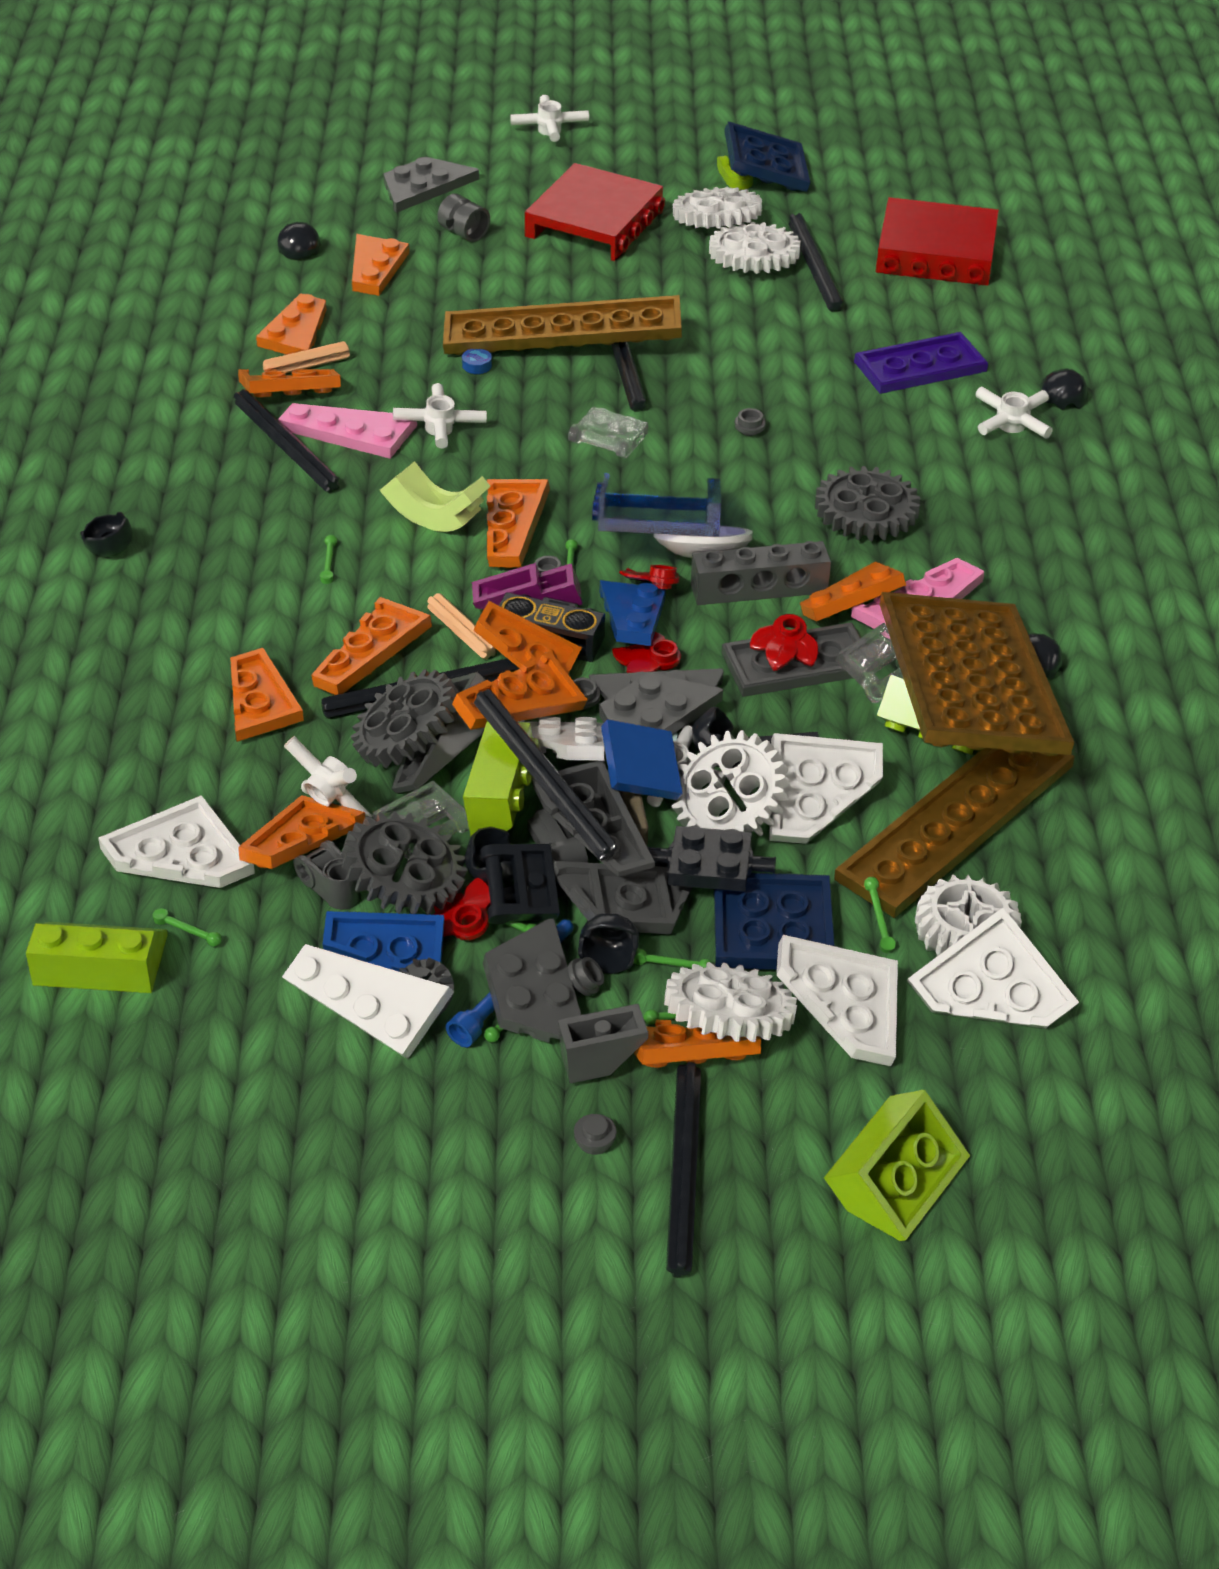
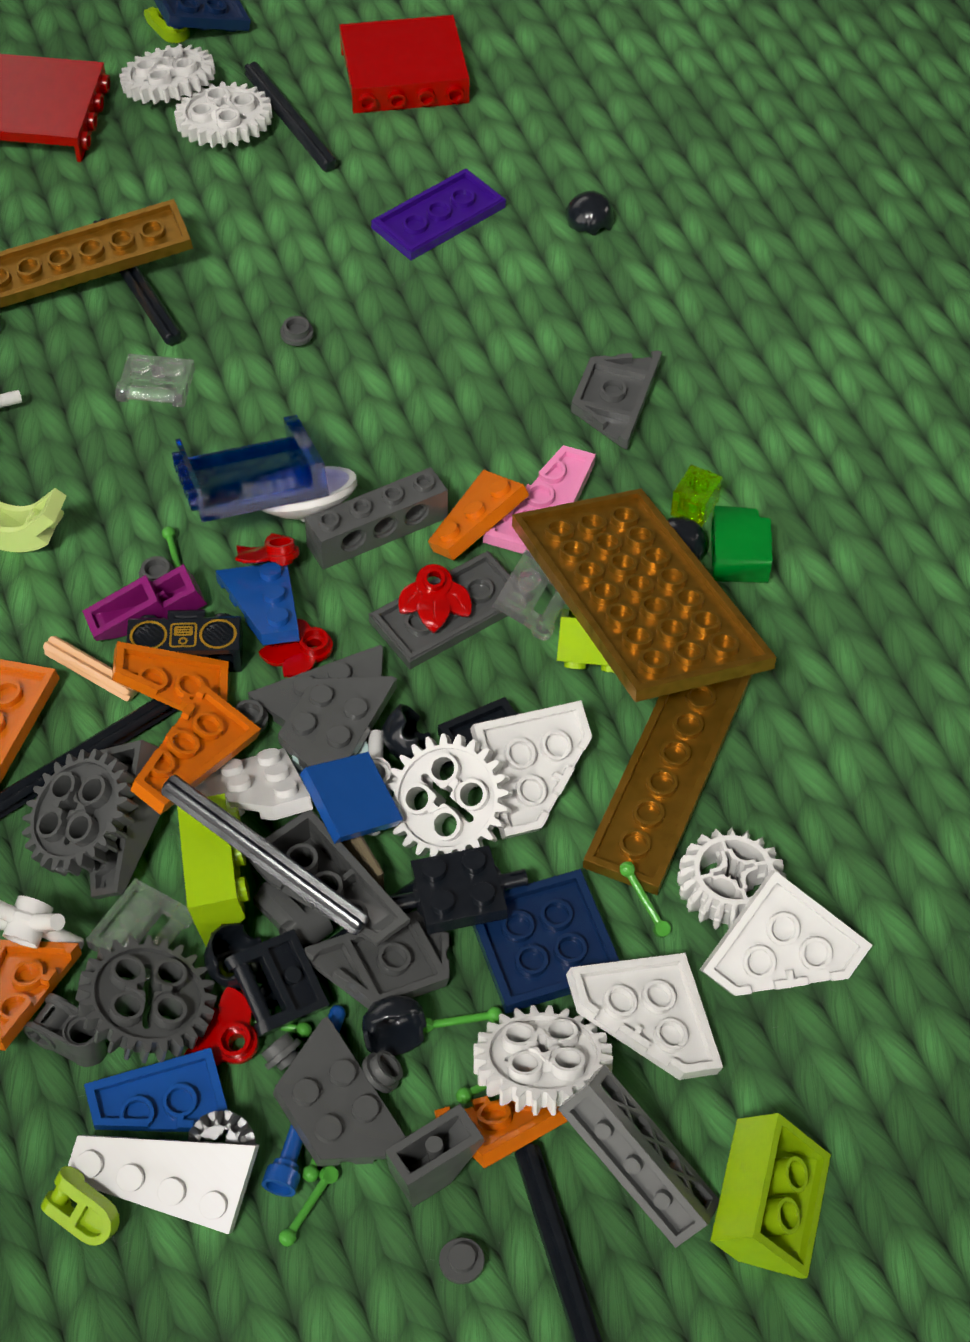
camera: 20 degrees left, 10 degrees up
(292, 1009) = (94, 1216): none -> lime plate
(501, 933) = (281, 1052): none -> dark grey plate
(505, 1040) = (327, 1176): none -> bright green hinge
(512, 518) = (96, 518): orange wing -> none
(784, 1092) = (639, 1157): none -> dark grey fence
(867, 503) = (450, 401): dark grey gear -> none
(1013, 412) = (553, 254): white bar -> none
(1025, 531) = (615, 393): none -> dark grey wing
(1068, 623) = (696, 494): none -> clear neon green brick
(1091, 672) = (740, 545): none -> green piece

